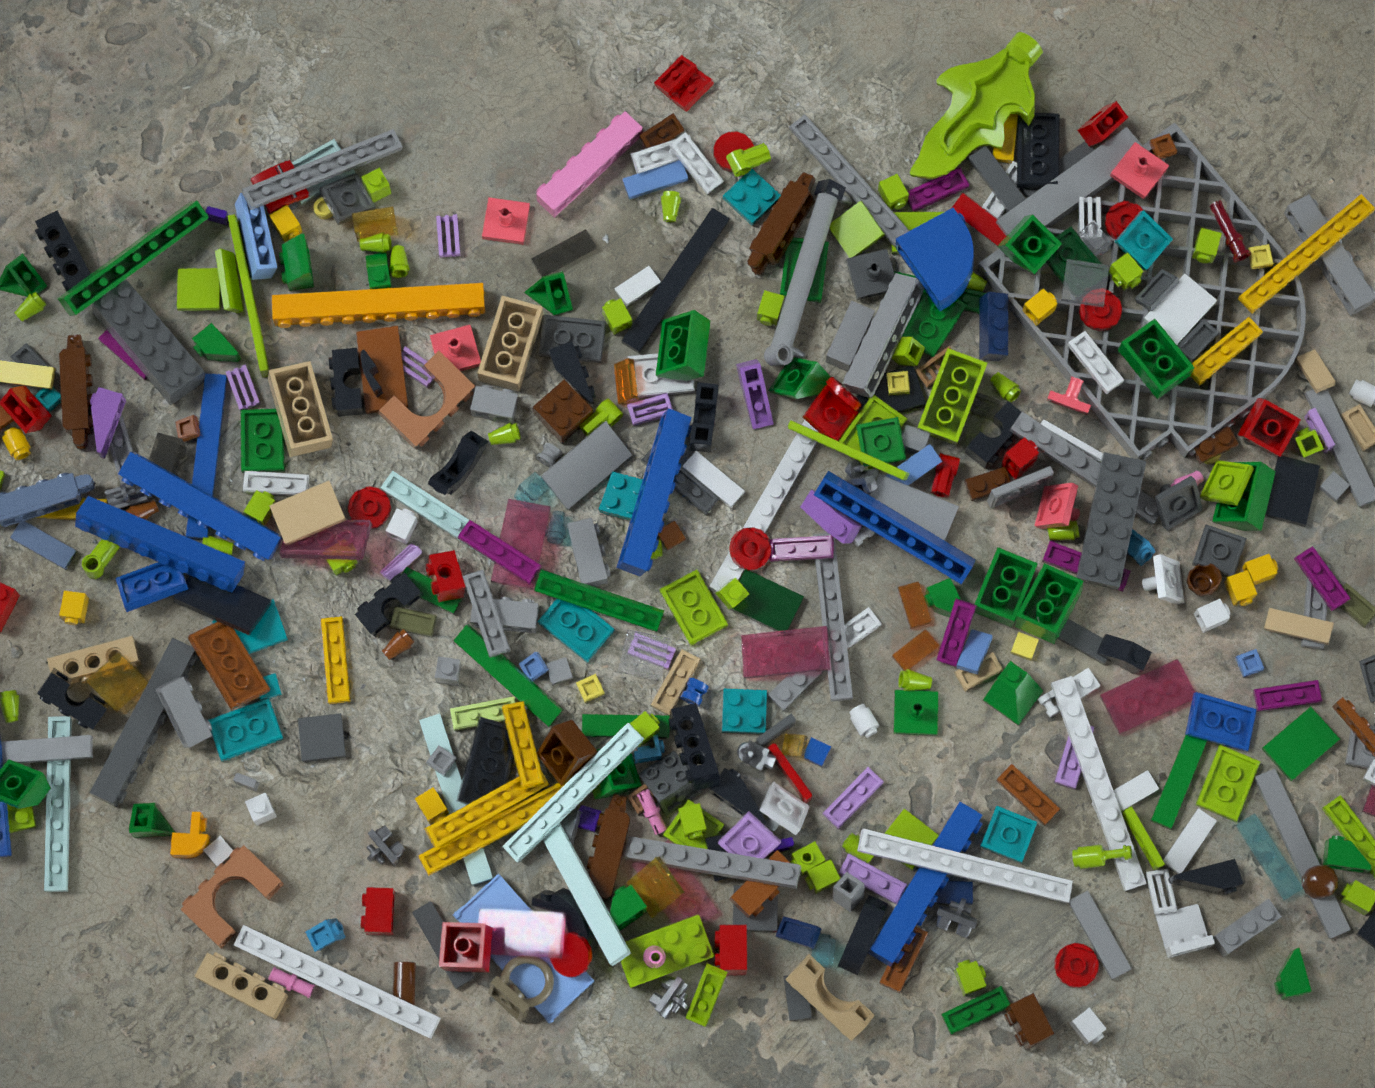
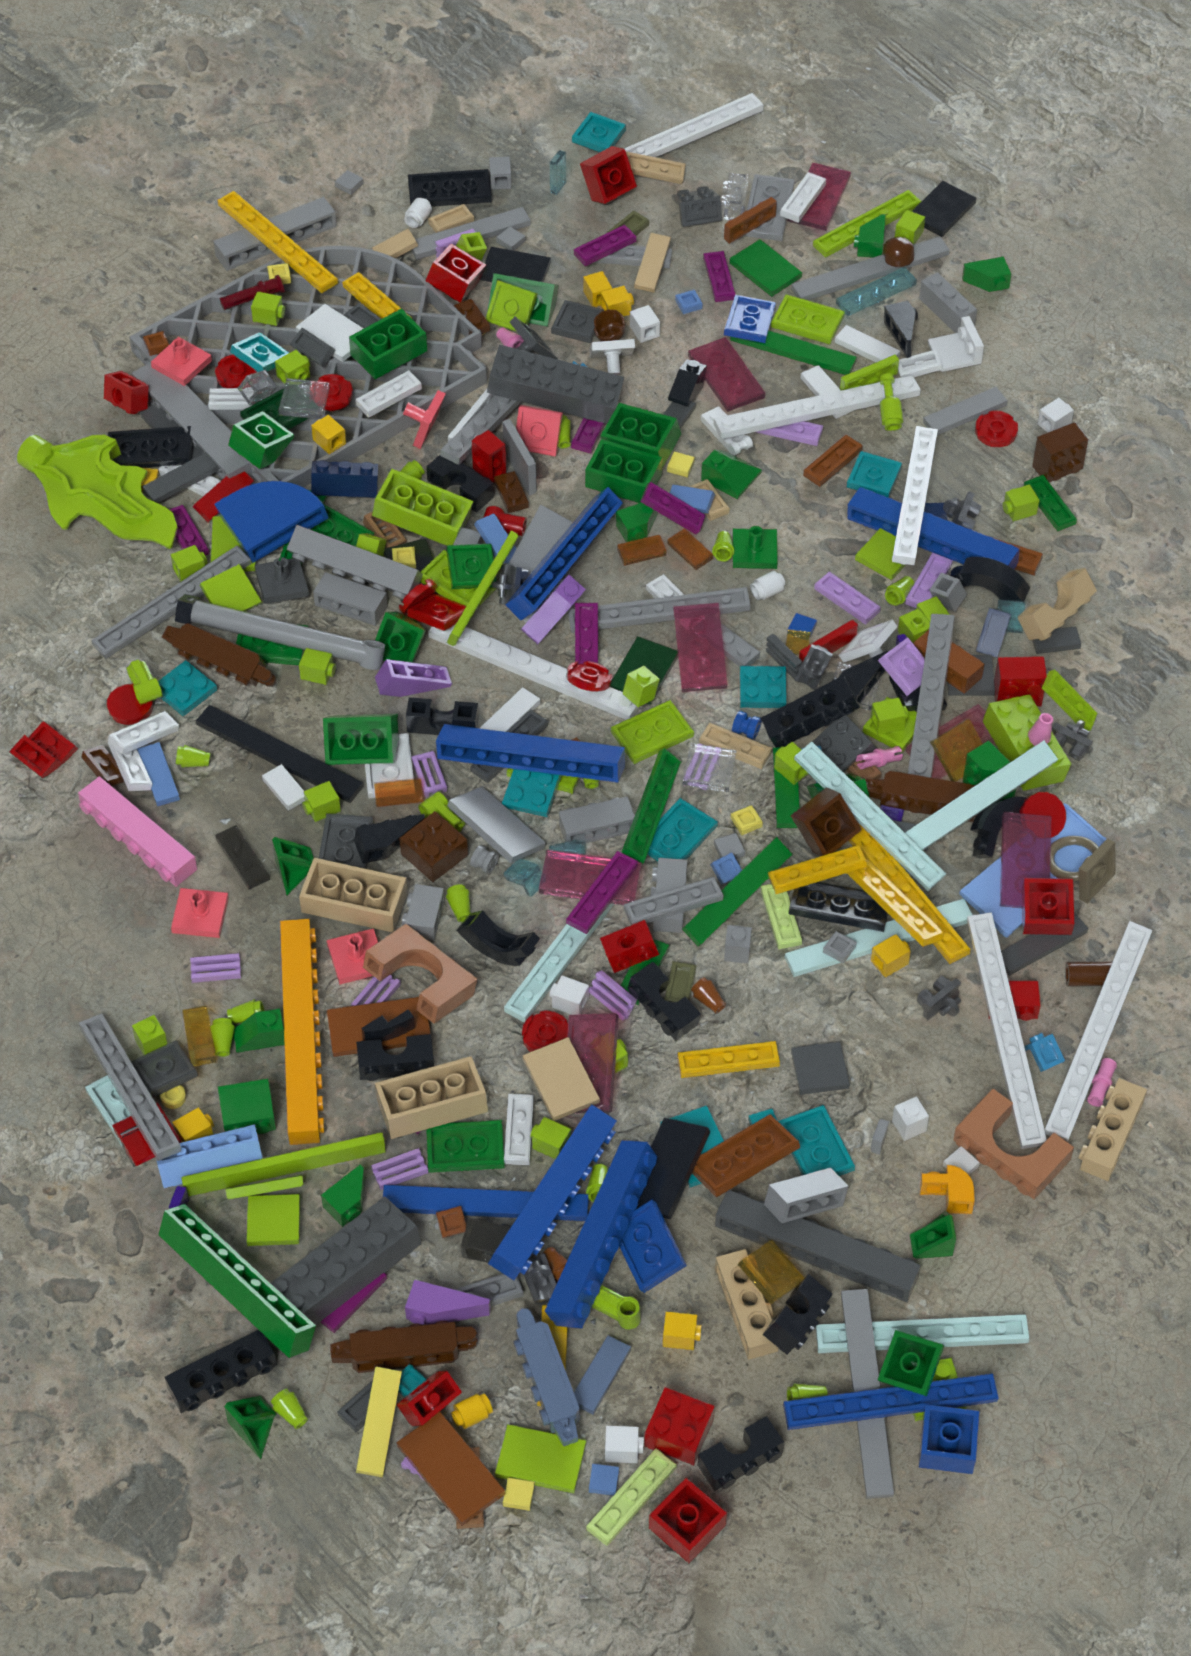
camera: 90 degrees left, 20 degrees down
(339, 896) = (1006, 1030): none -> white plate

